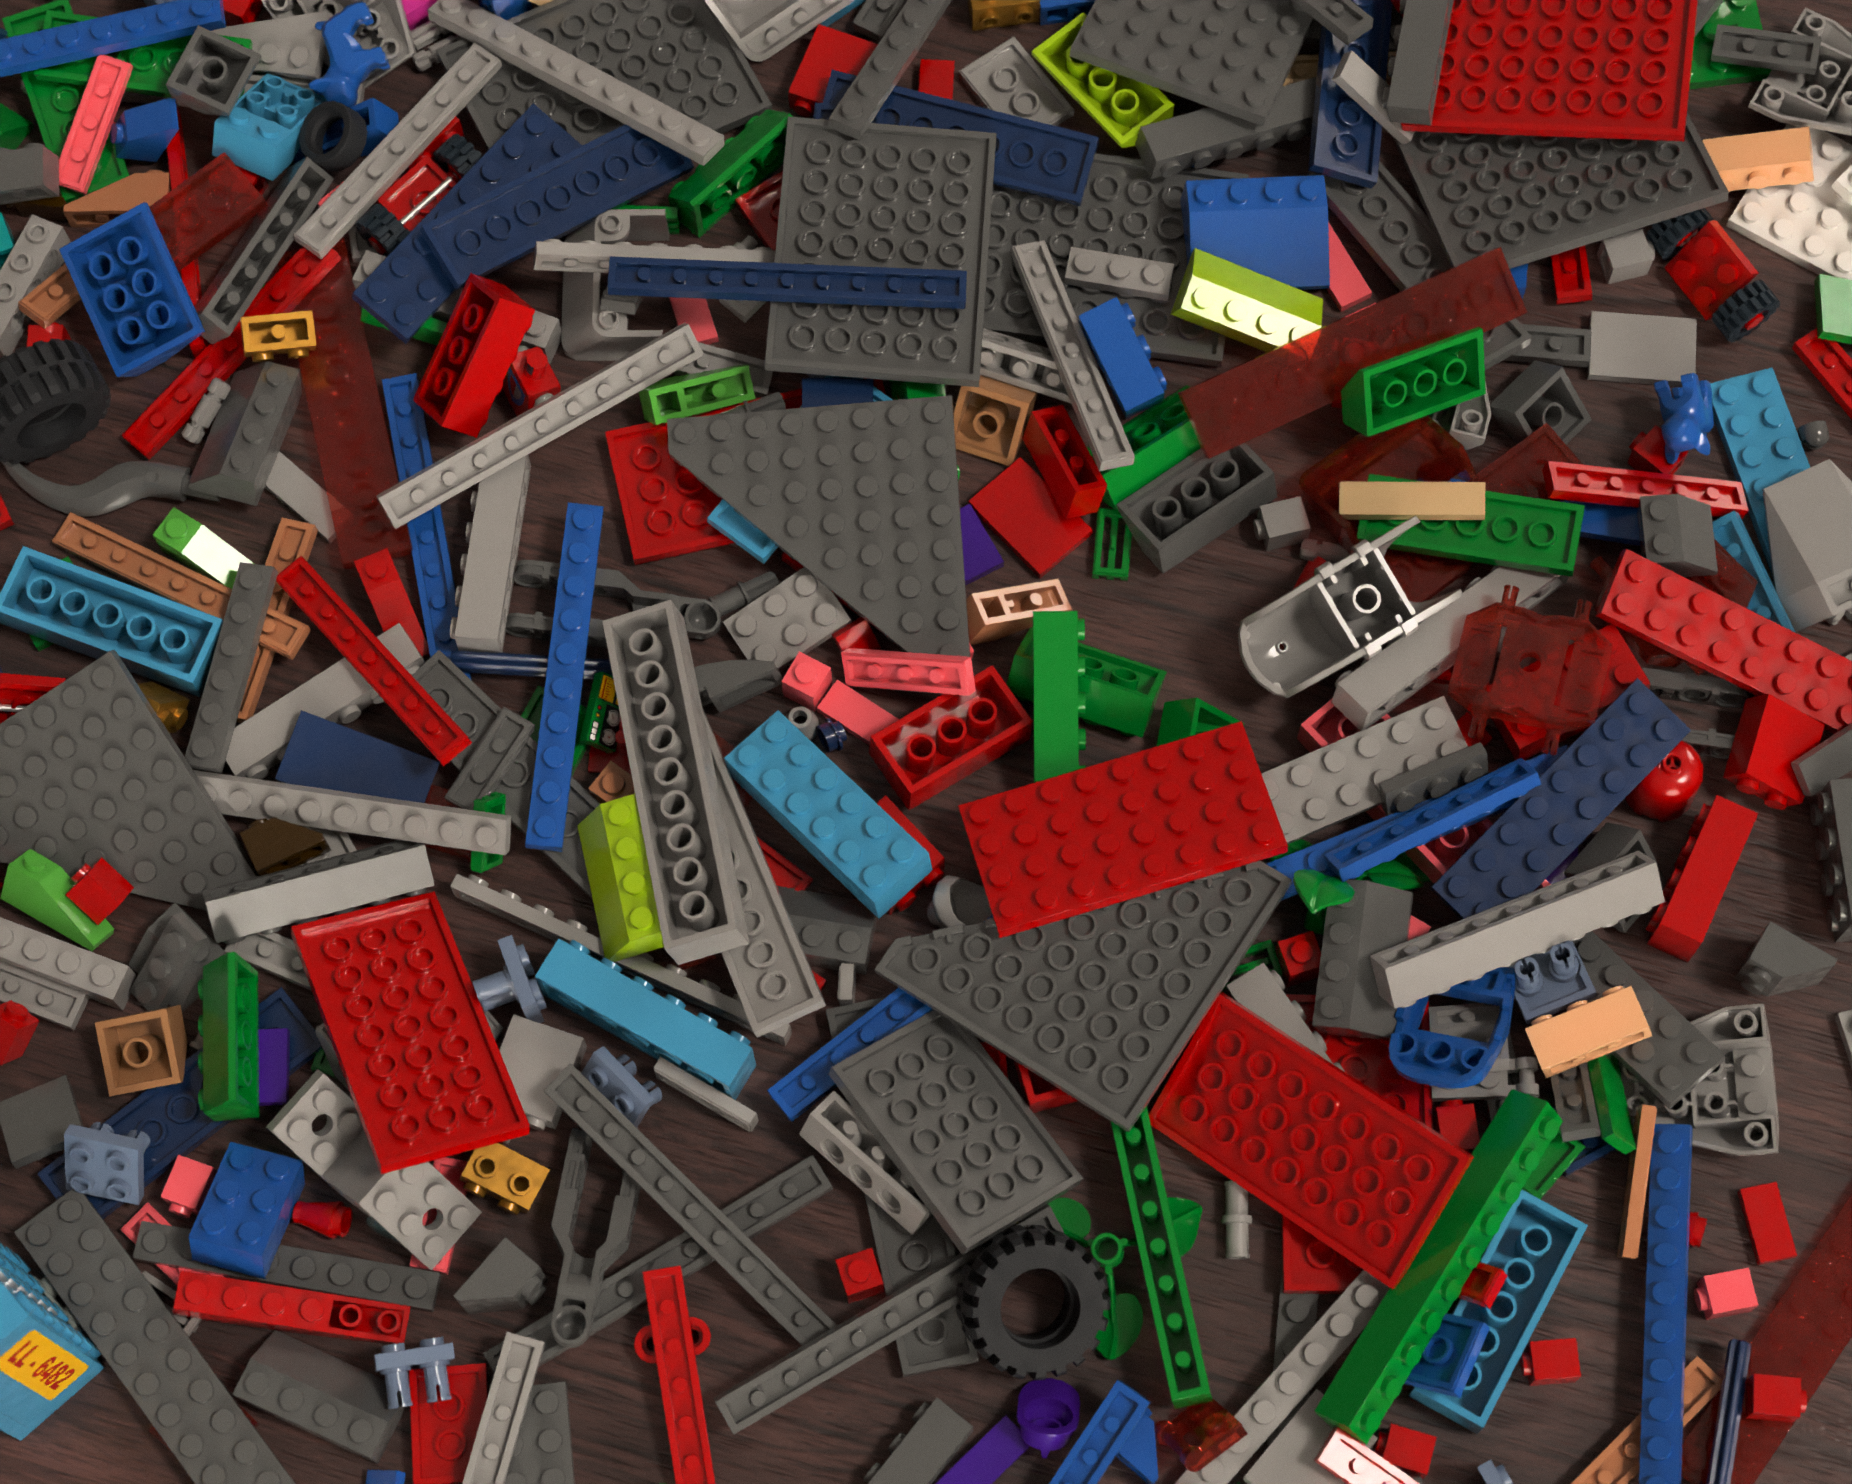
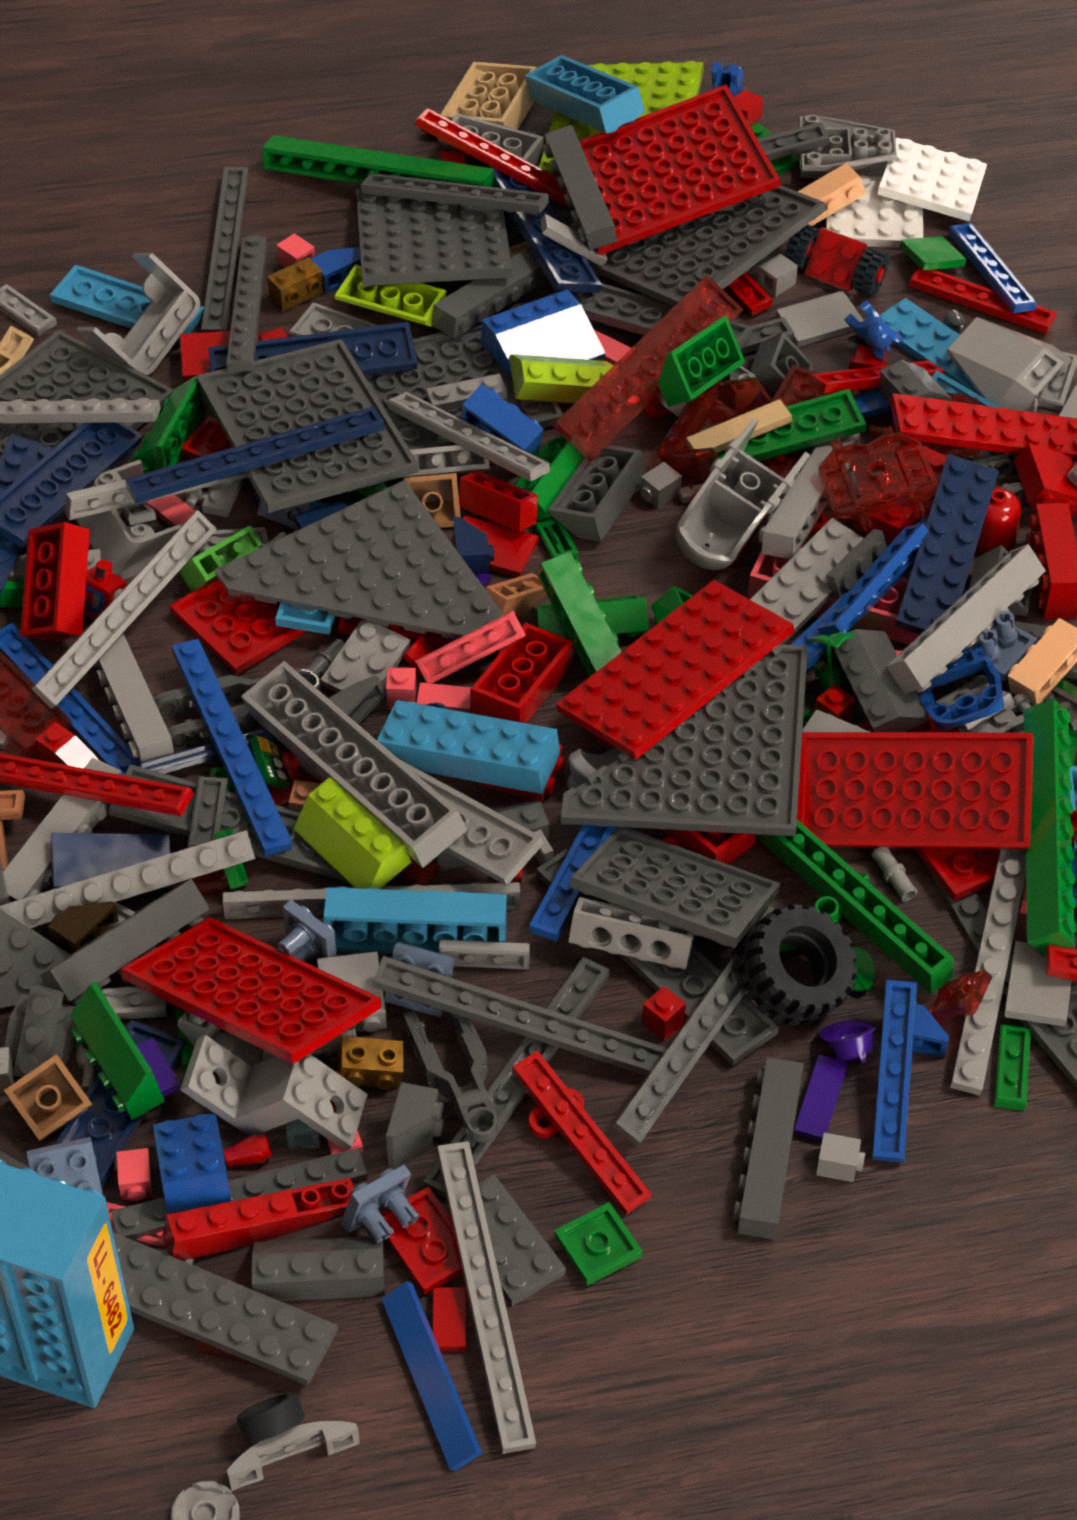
camera: 30 degrees left, 20 degrees down
(993, 517) = (472, 546): none -> dark blue slope

